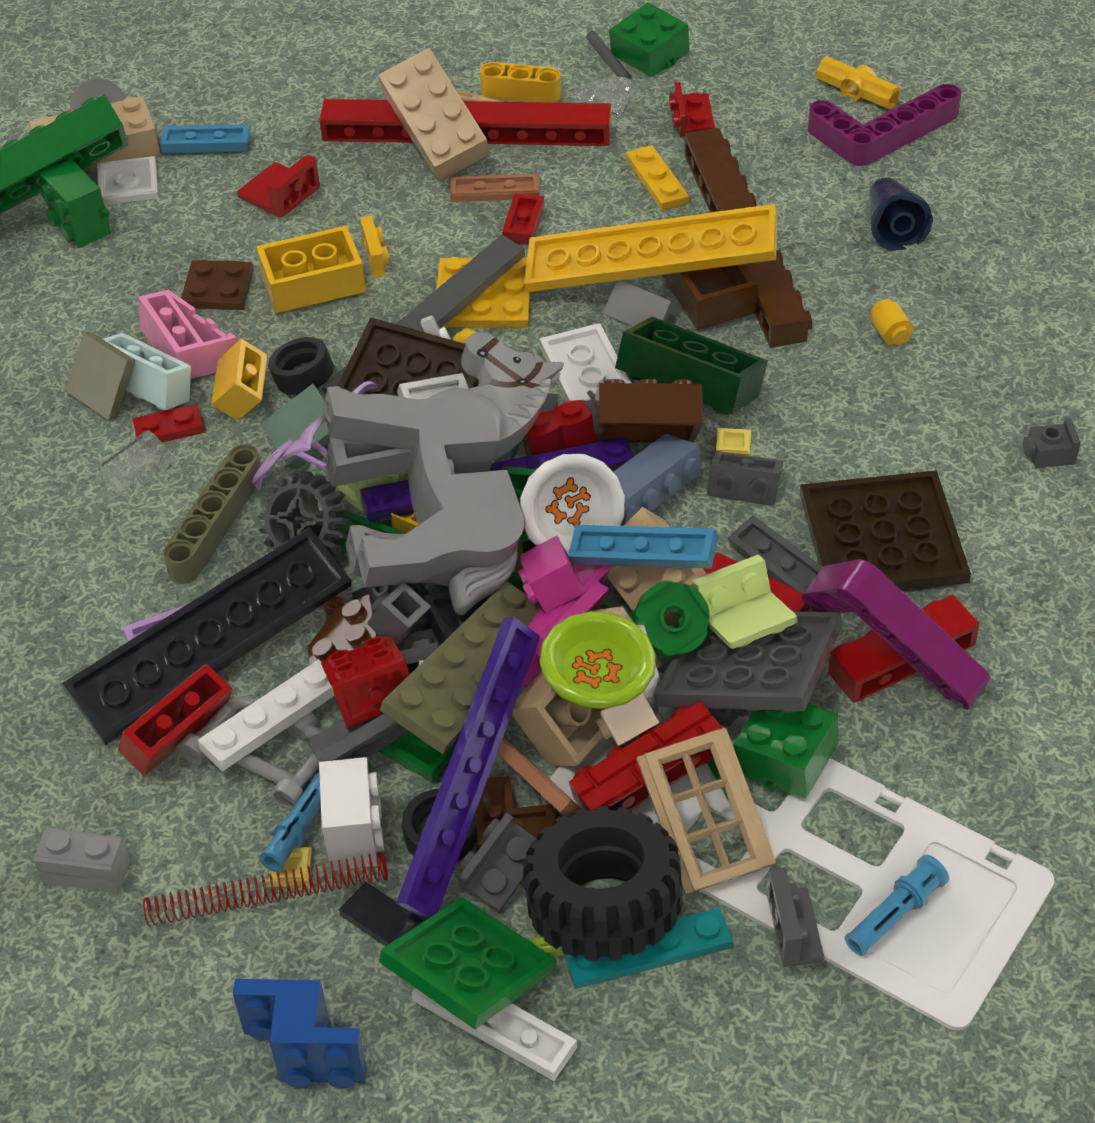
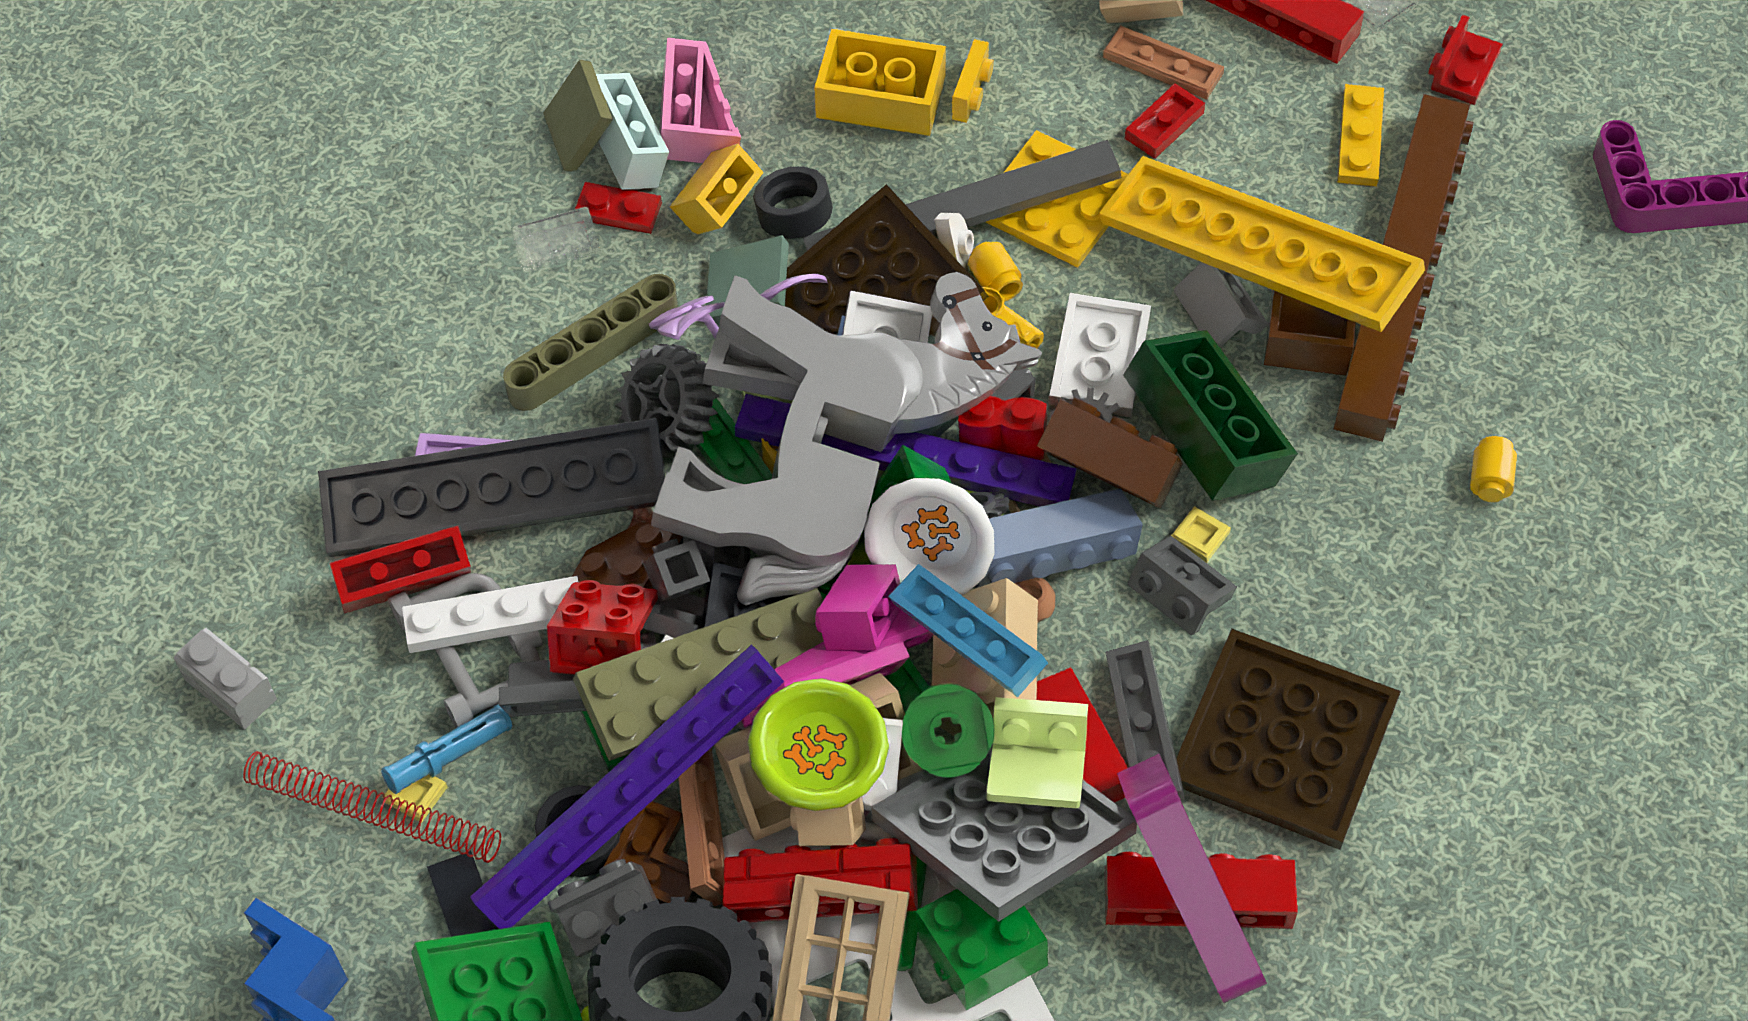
camera: 30 degrees right, 10 degrees up
(217, 284) = (777, 51): reddish brown plate -> none
(350, 812) = (491, 770): white brick -> none
(858, 82) = (1700, 113): yellow piece -> none
(898, 215) = (1604, 325): dark blue cone -> none
(1052, 445) = (1565, 727): dark grey brick -> none

